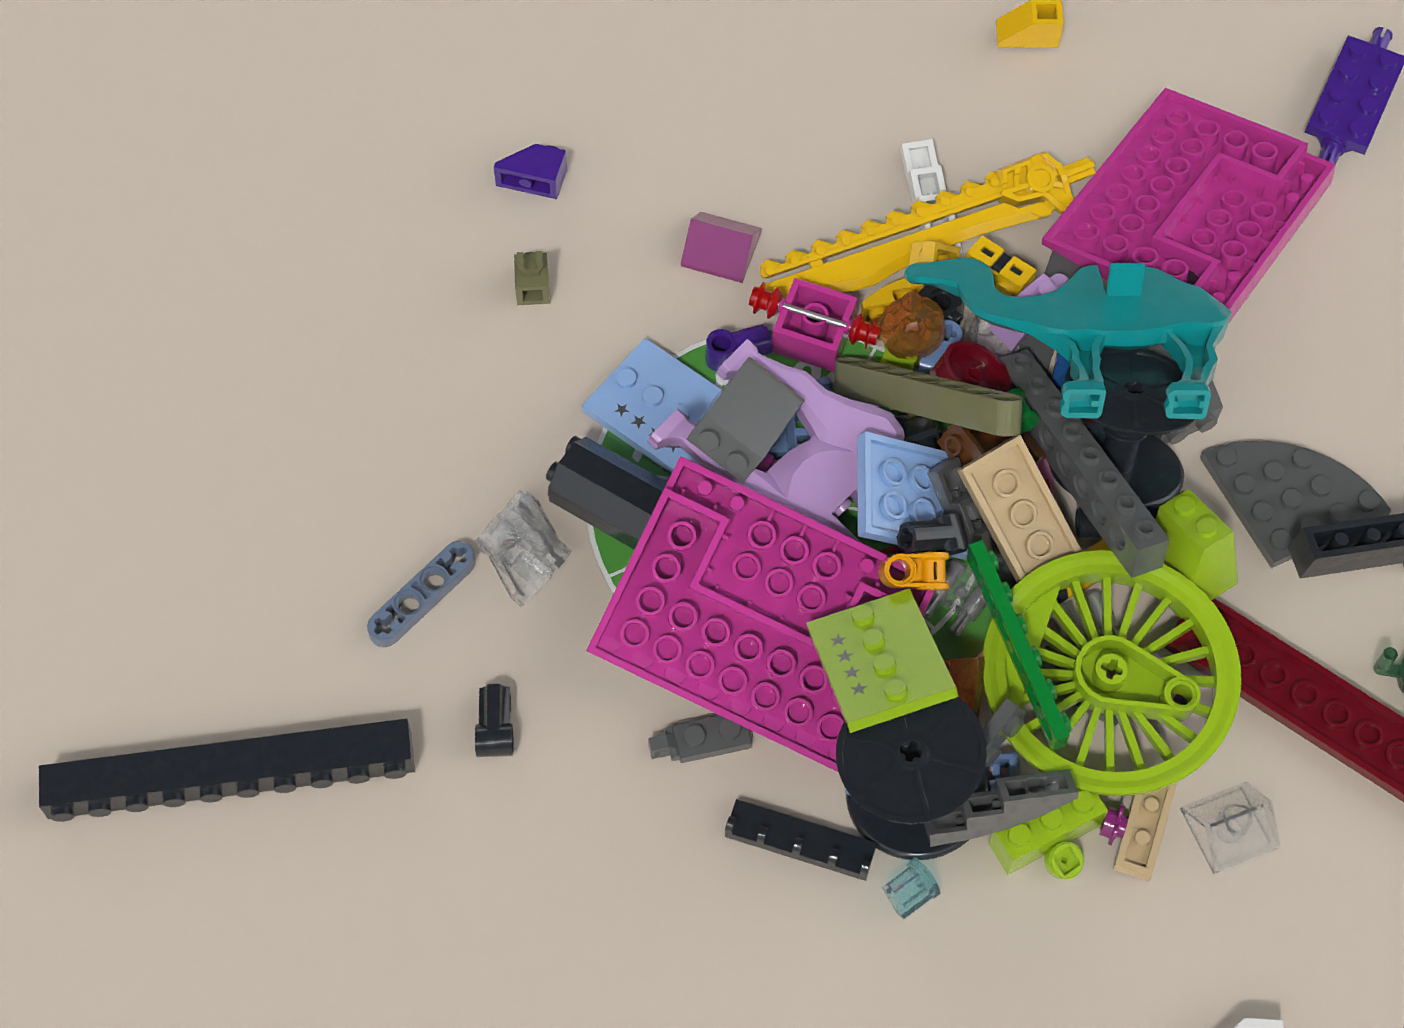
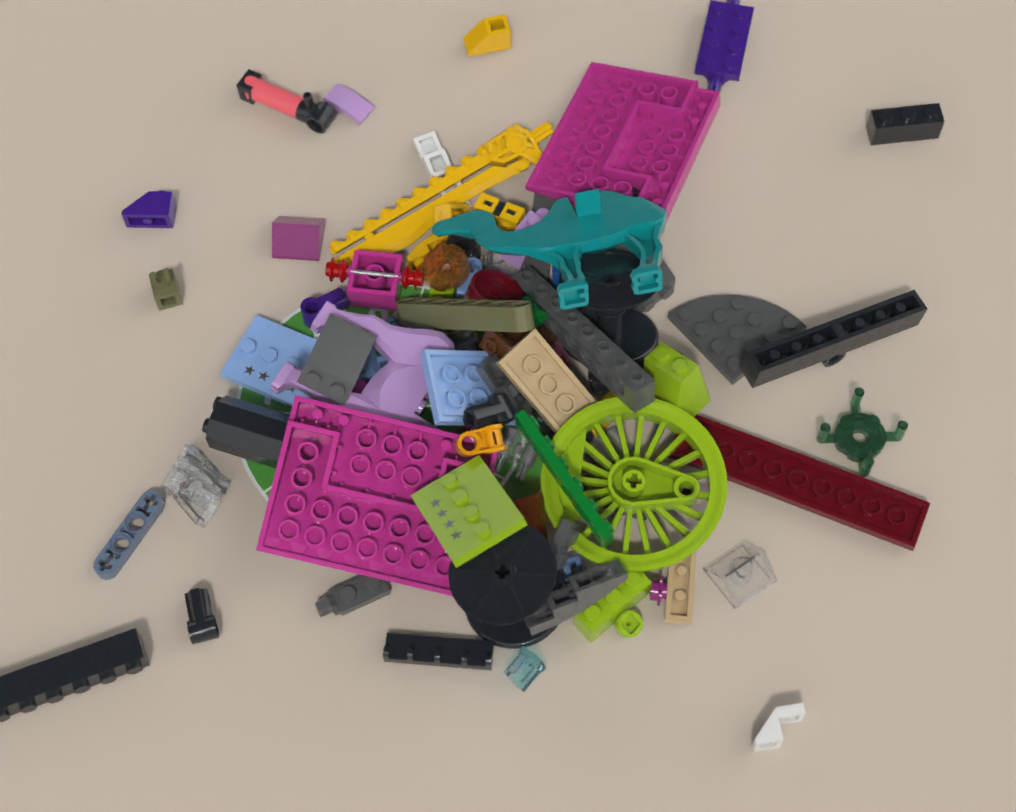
camera: 10 degrees left, 0 degrees up
(776, 86) = (316, 115): none -> piece
(825, 78) = (349, 103): none -> lavender slope

